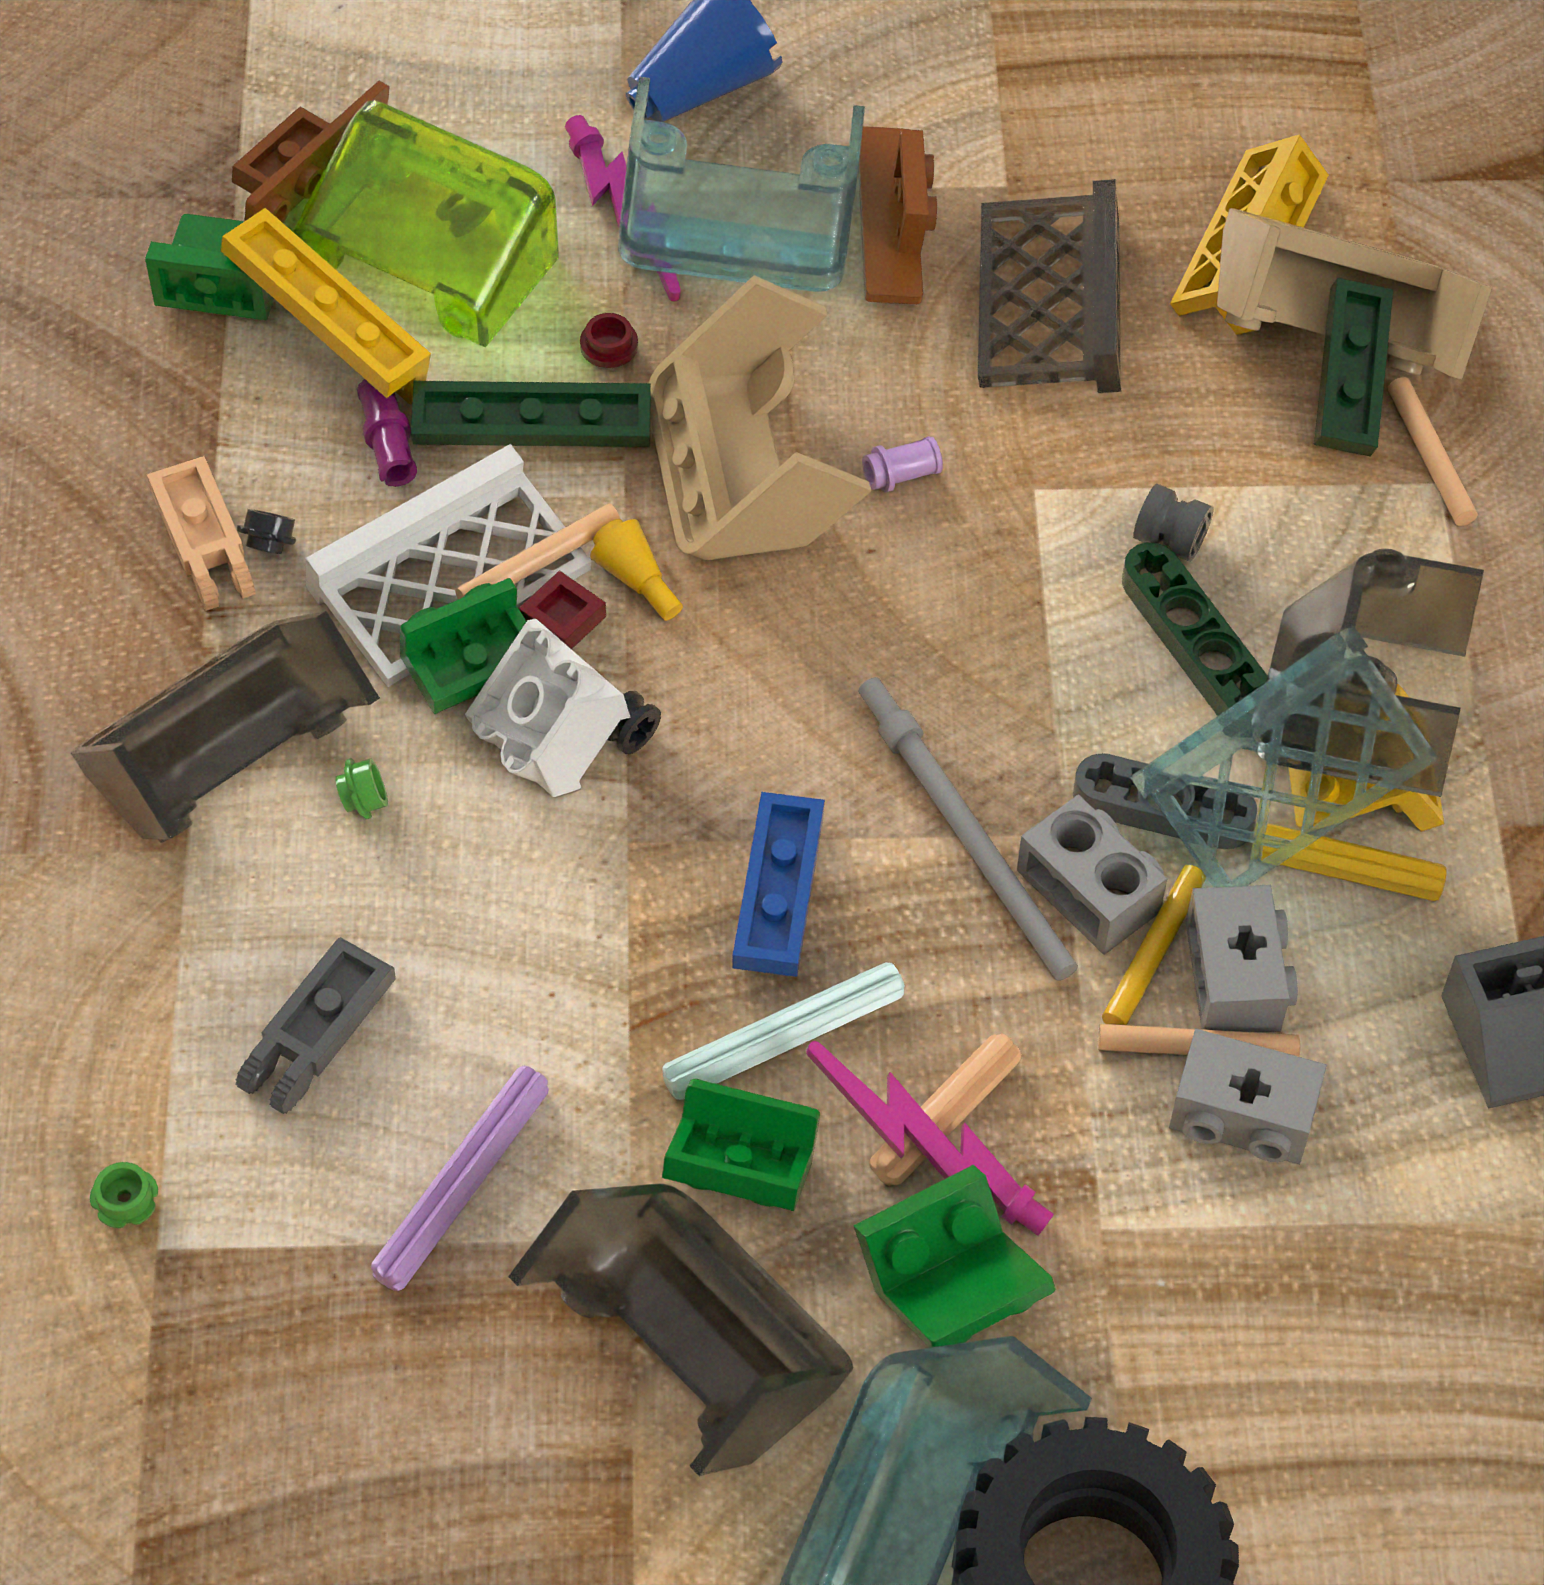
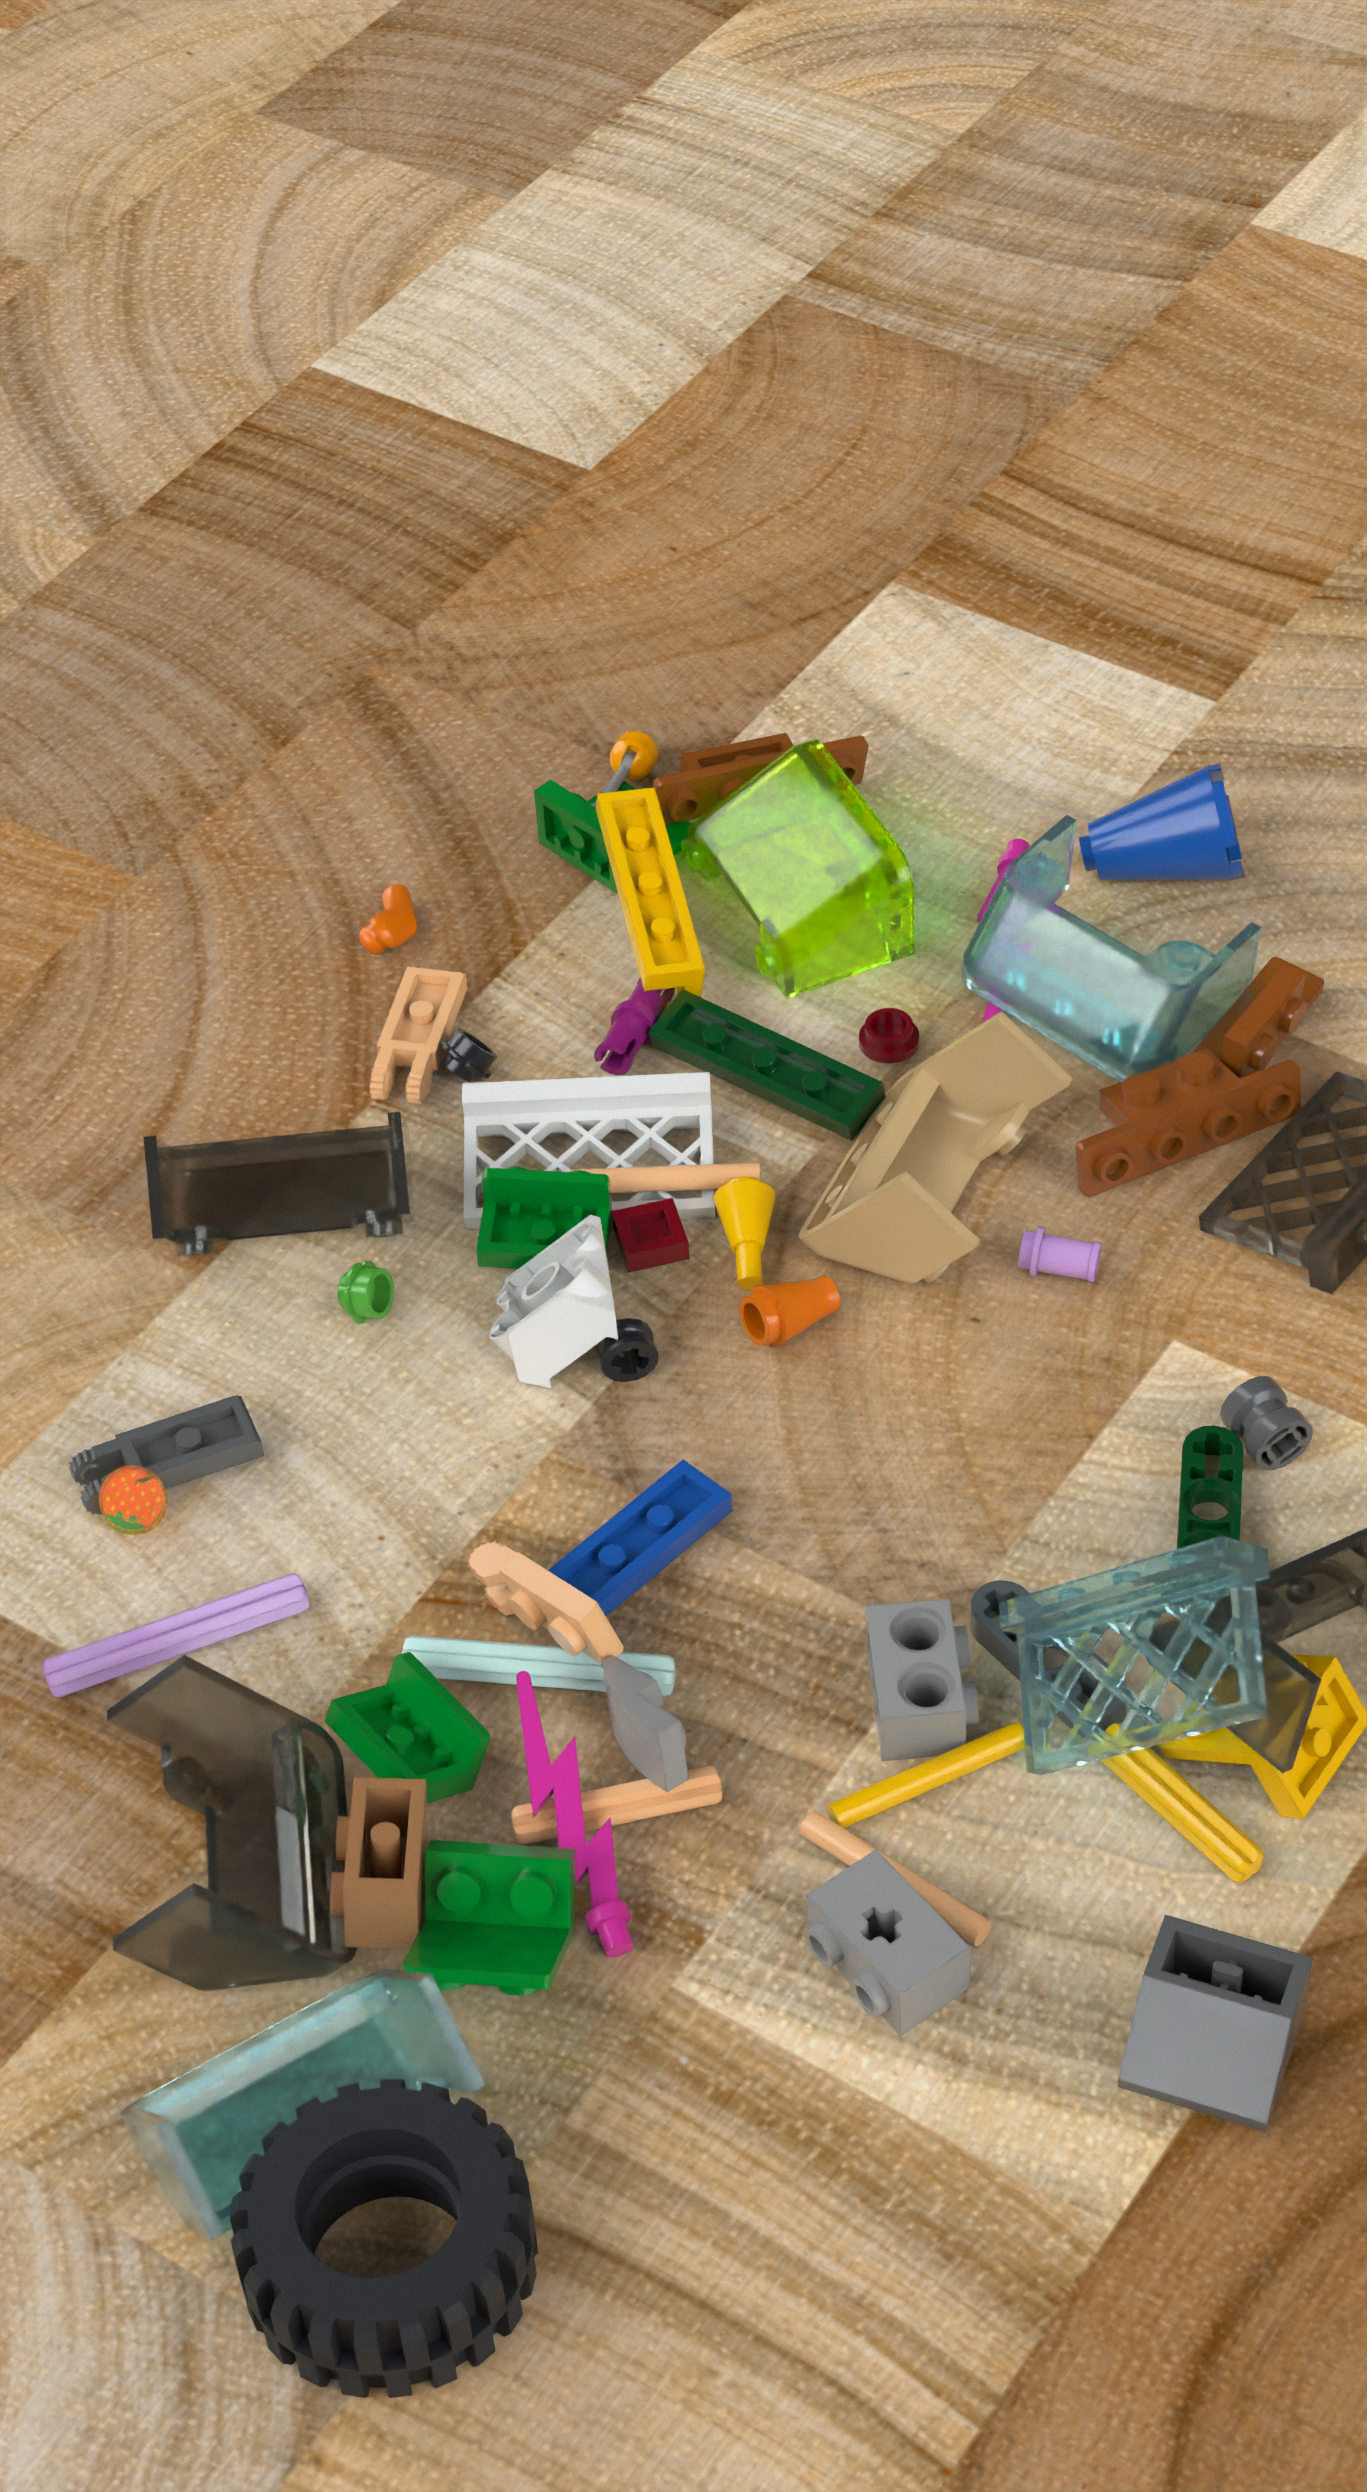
camera: 40 degrees right, 10 degrees down
(90, 436) = (392, 925): none -> orange arm
(178, 197) = (628, 765): none -> light orange hinge
(325, 1080) = (133, 1500): none -> tile
(727, 622) = (785, 1309): none -> orange cone
(763, 972) = (543, 1599): none -> light nougat hinge
(828, 1267) = (383, 1863): none -> medium nougat brick
(898, 294) = (1181, 1114): none -> dark orange bracket
(904, 736) = (857, 1484): light grey bar -> none
(936, 1039) = (645, 1733): none -> light grey slope
(1239, 959) = (986, 1823): light grey brick -> none

